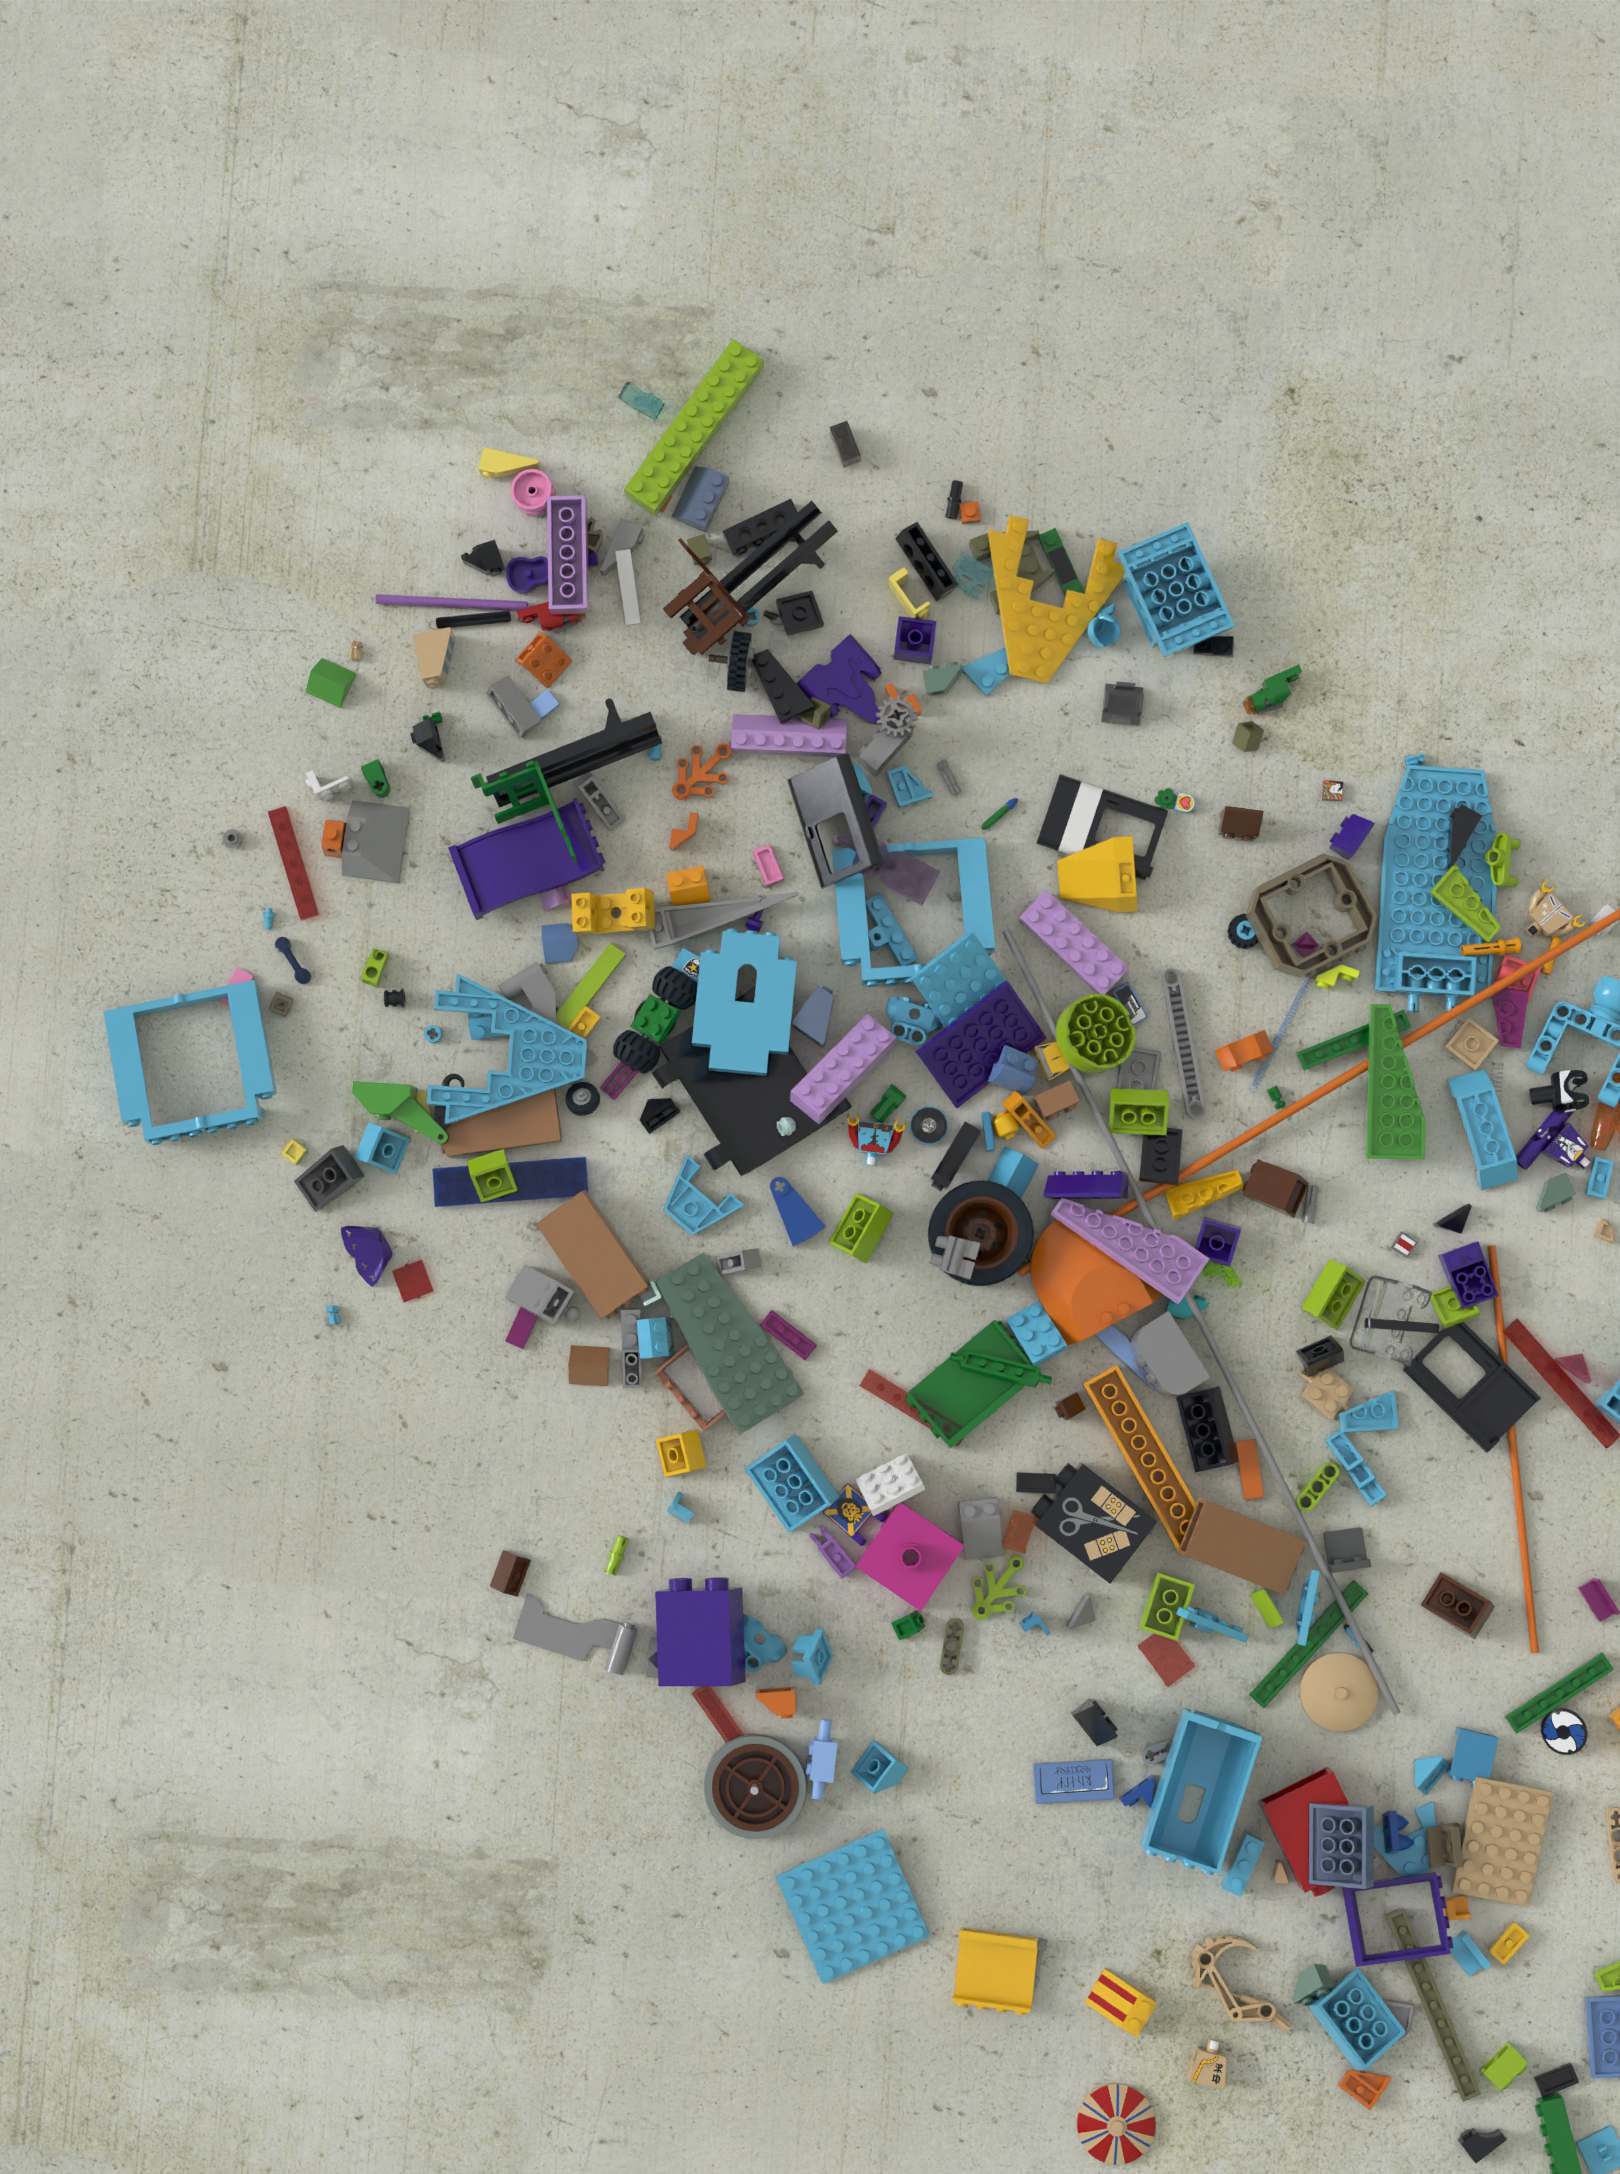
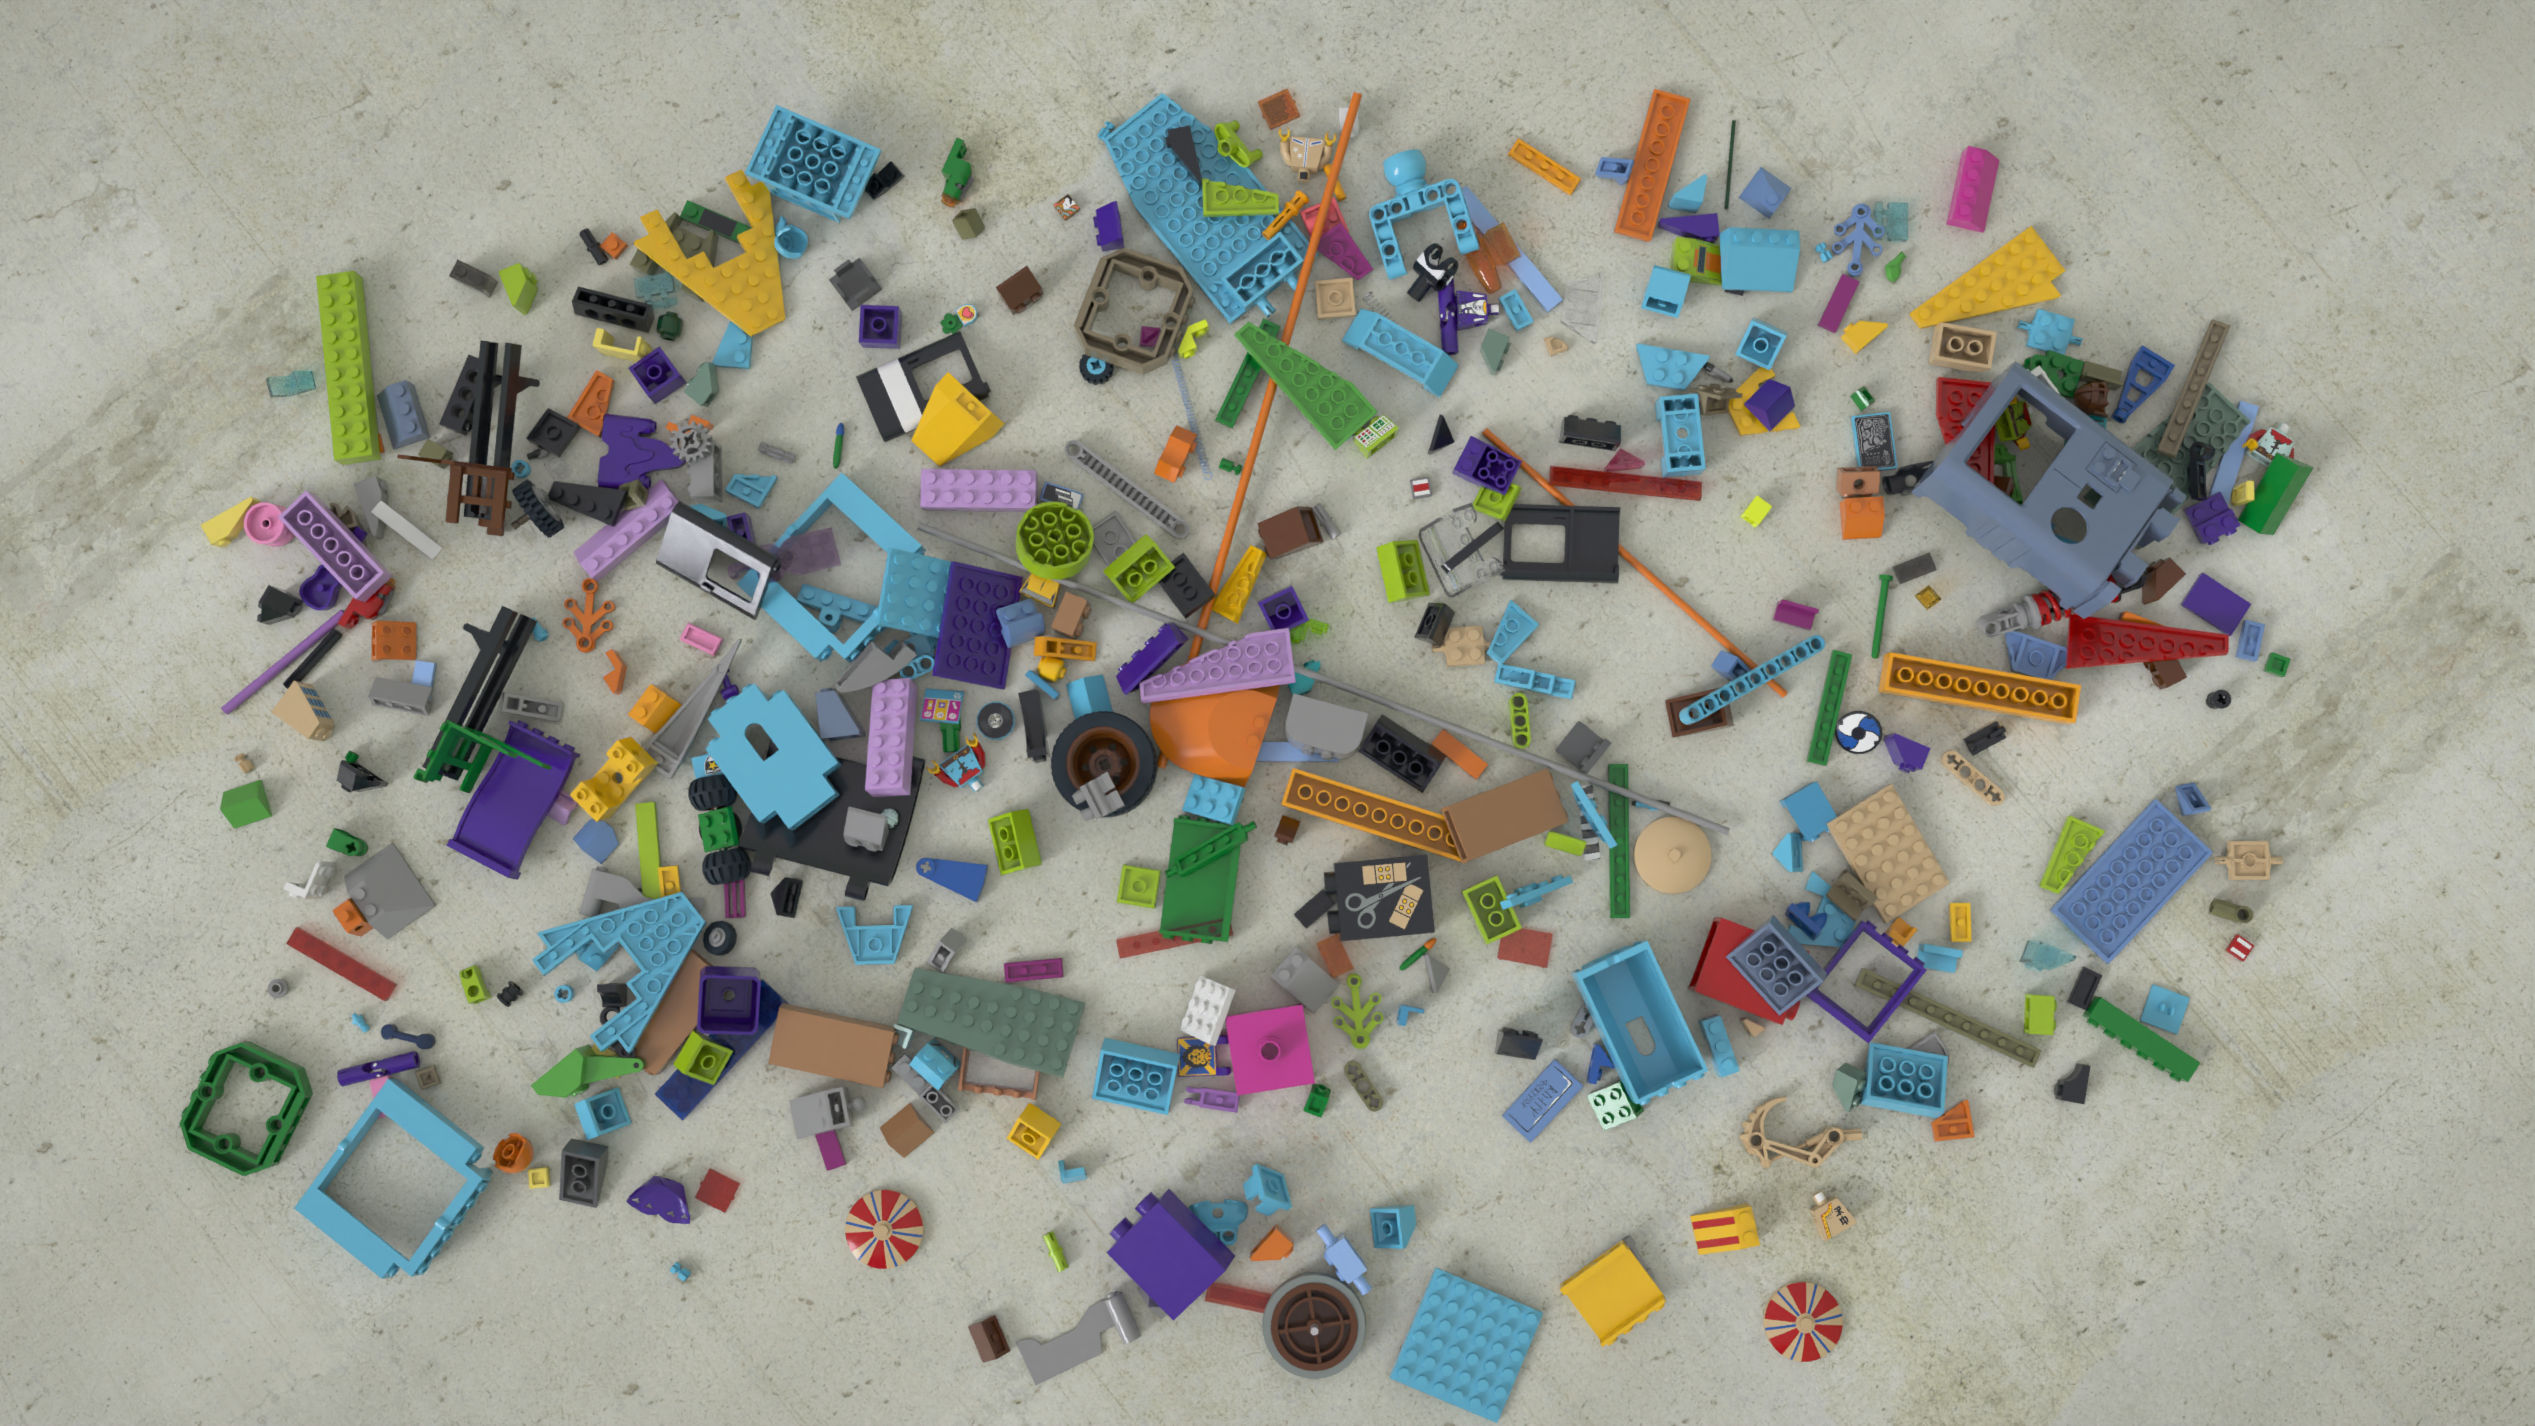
camera: 45 degrees left, 0 degrees up
(84, 911) = (213, 1146): none -> green panel
(254, 966) = (380, 1068): none -> dark purple piece
(293, 1118) = (513, 1154): none -> orange cylinder
(468, 1068) = (613, 994): none -> black arch
(507, 1422) = (884, 1229): none -> dish
(549, 1168) = (728, 1016): none -> dark purple plate
(763, 1119) = (866, 829): none -> light grey slope
(848, 617) = (593, 404): none -> orange wing
(874, 482) = (520, 286): none -> lime slope
(878, 1004) = (874, 666): none -> light grey slope
(899, 1078) = (942, 706): none -> piece
(921, 1345) = (1138, 886): none -> lime tile
(956, 611) = (669, 326): none -> dark green head
(1081, 1587) = (1417, 954): none -> green piece
(1112, 754) = (880, 326): none -> dark purple brick
(1123, 1834) = (1614, 1105): none -> bracket
(1282, 1631) = (1591, 849): none -> sticker
(1406, 1174) = (1375, 435): none -> slope
(1513, 1597) = (1729, 666): none -> medium blue slope
(1513, 1614) = (1744, 681): none -> medium azure beam
(1547, 2026) = (2042, 956): none -> clear light blue slope
(1560, 861) = (1278, 109): none -> clear orange piece
(1570, 1321) = (1590, 433): none -> black slope
(1585, 1780) = (1906, 752): none -> dark purple slope

